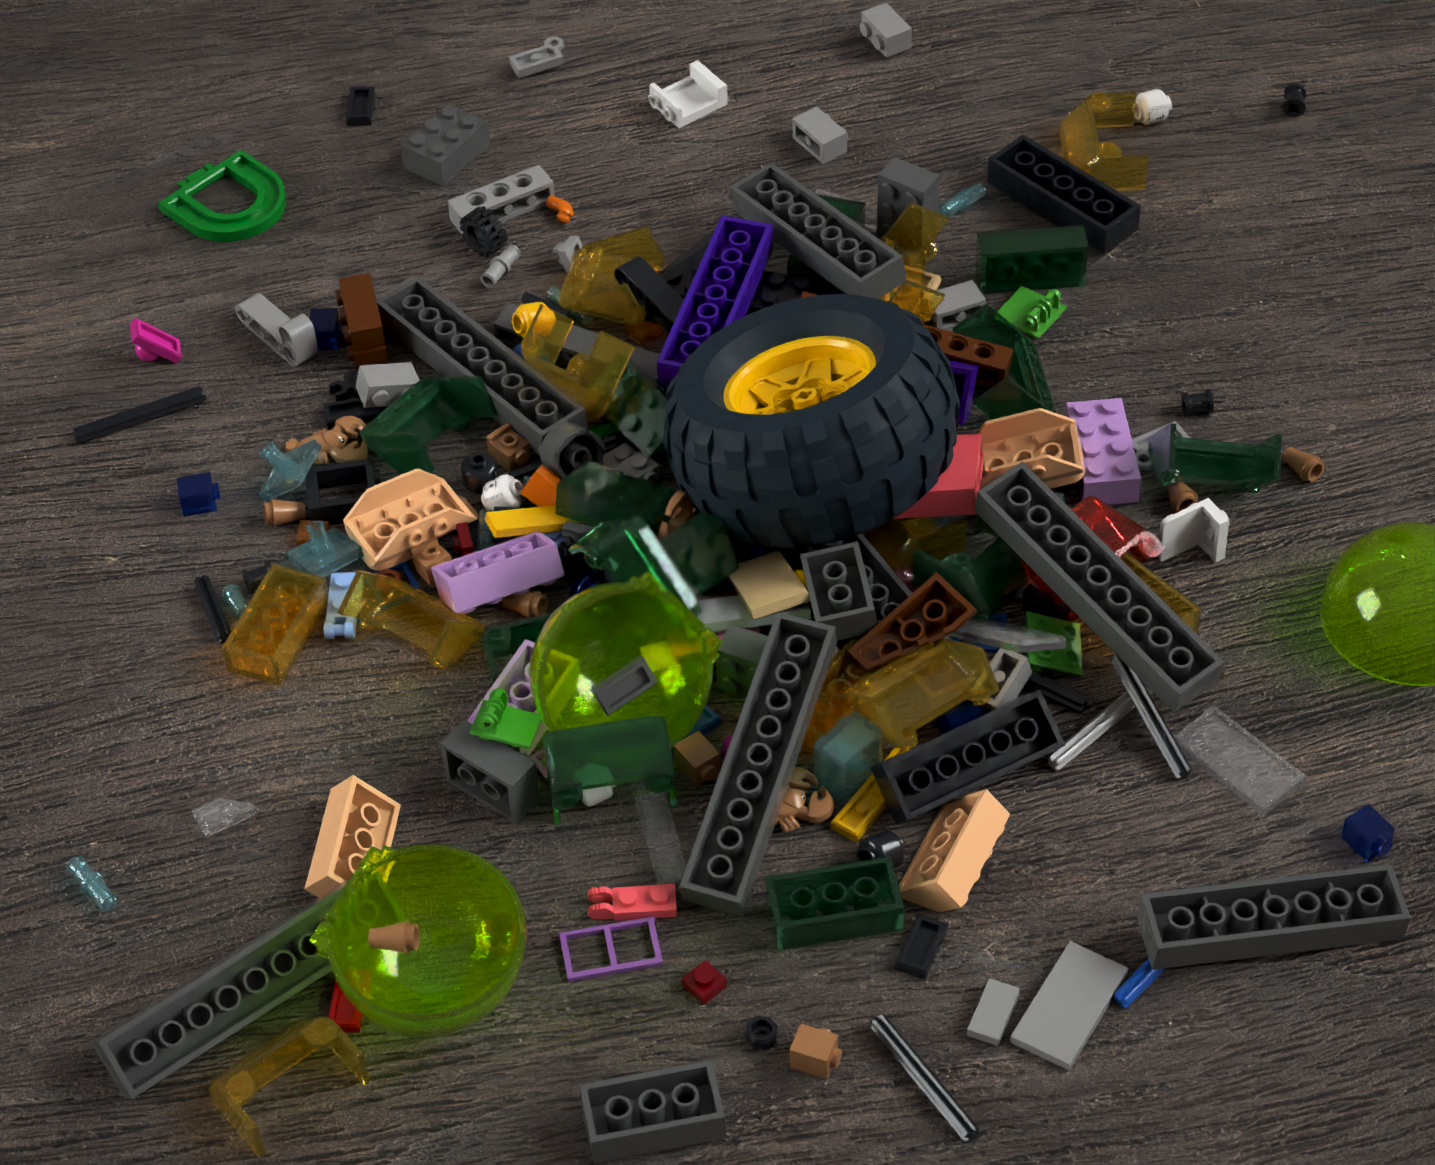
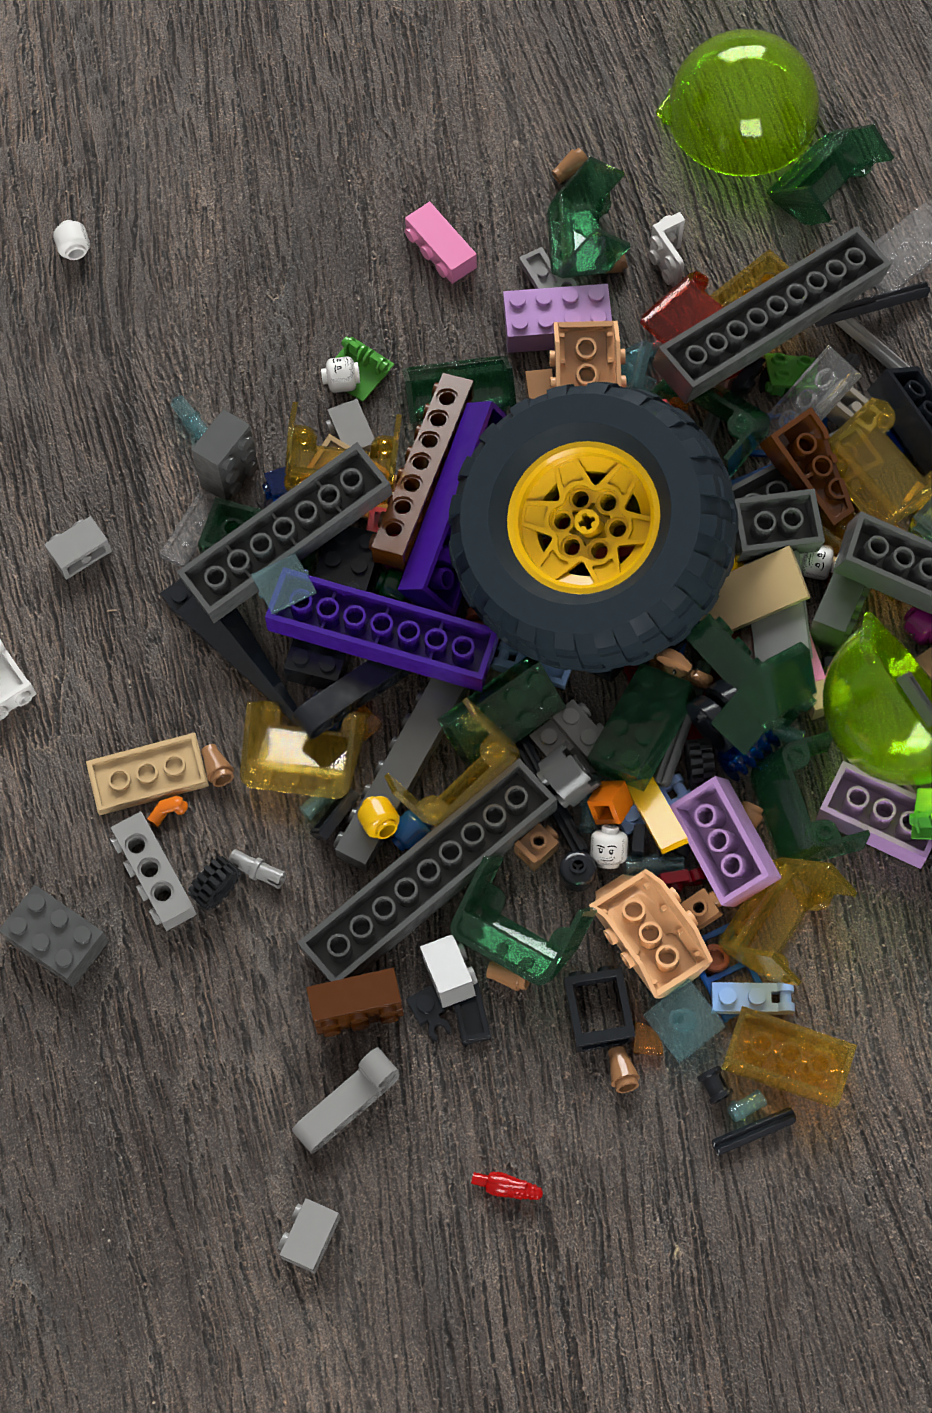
camera: 90 degrees left, 20 degrees up
(139, 414) = (469, 1246): black axle -> none
(153, 342) = (368, 1235): dark pink tile -> none
(164, 310) = (309, 1235): none -> light grey brick
(187, 435) = (506, 1186): none -> red piece
(198, 494) = (598, 1162): clear blue brick -> none
(228, 227) = (145, 1215): green piece -> none
(288, 468) = (574, 1063): clear light blue tile -> none
(326, 327) = (346, 1049): clear blue brick -> none
(335, 440) = (523, 1026): medium nougat animal -> none
(567, 251) = (246, 797): light grey tile -> none
(596, 232) = (217, 768): none -> medium nougat cone
(598, 197) = (147, 773): none -> tan tile
(754, 223) = (283, 583): none -> clear light blue piece
(1013, 288) = (341, 374): none -> white head
(1031, 259) = (300, 355): clear green brick -> none
(1063, 193) = (201, 324): black brick -> none
(1103, 160) = (127, 303): clear yellow windscreen -> none
(1186, 362) = (440, 243): none -> bright pink brick
(1188, 400) = (493, 241): black bush -> none
(1294, 100) = (72, 119): black bush -> none
(1315, 671) = (825, 169): none -> clear green windscreen

